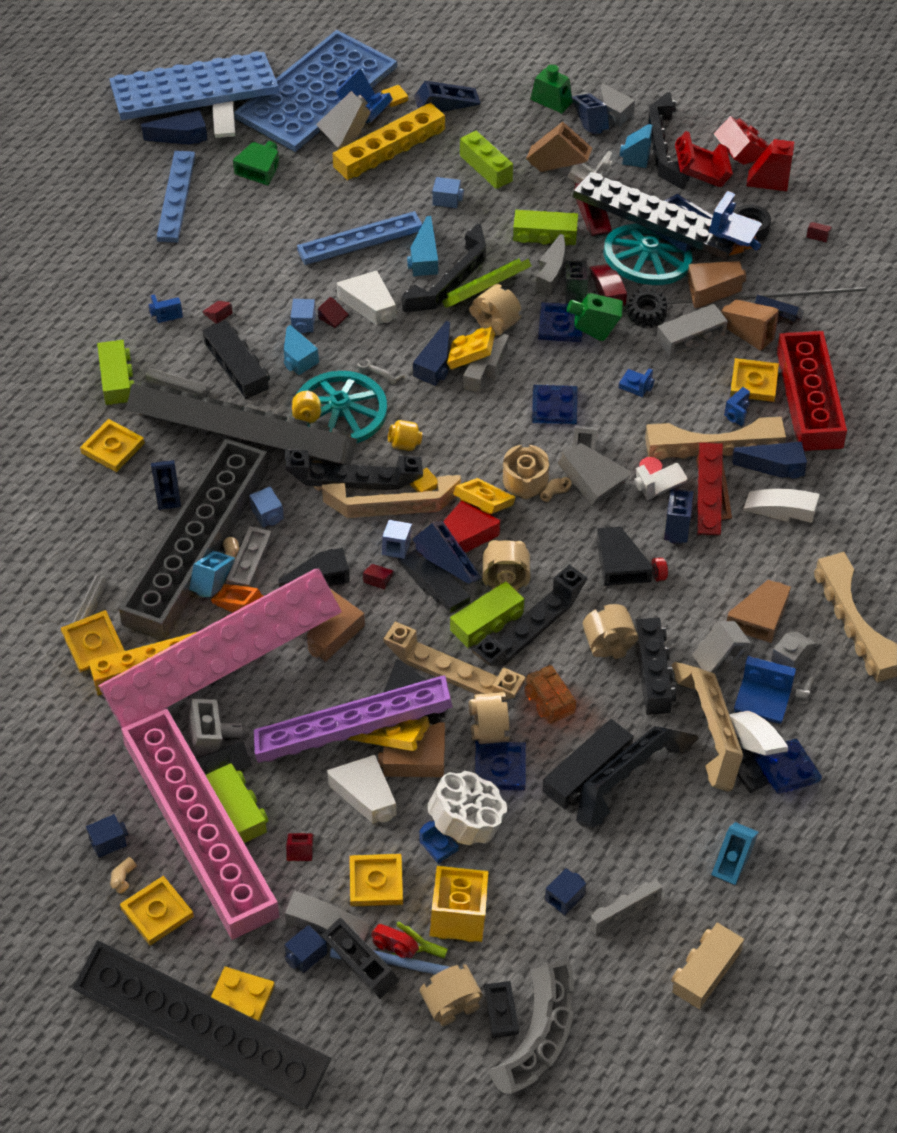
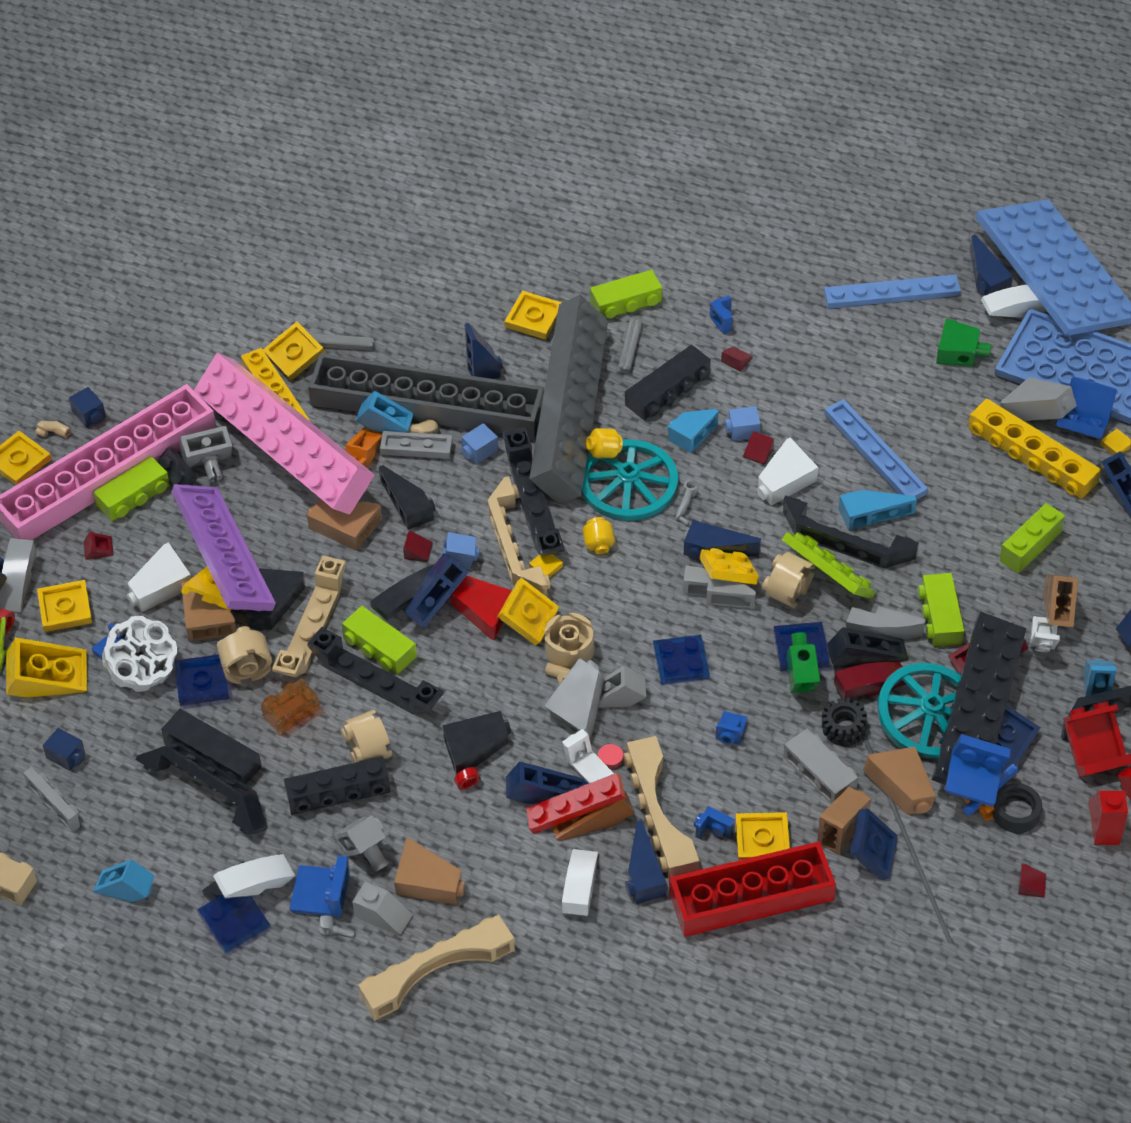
camera: 80 degrees right, 0 degrees up
(447, 192) = (968, 512): medium blue brick -> none
(506, 562) = (436, 641): tan brick -> none
(724, 768) = (274, 840): tan slope -> none

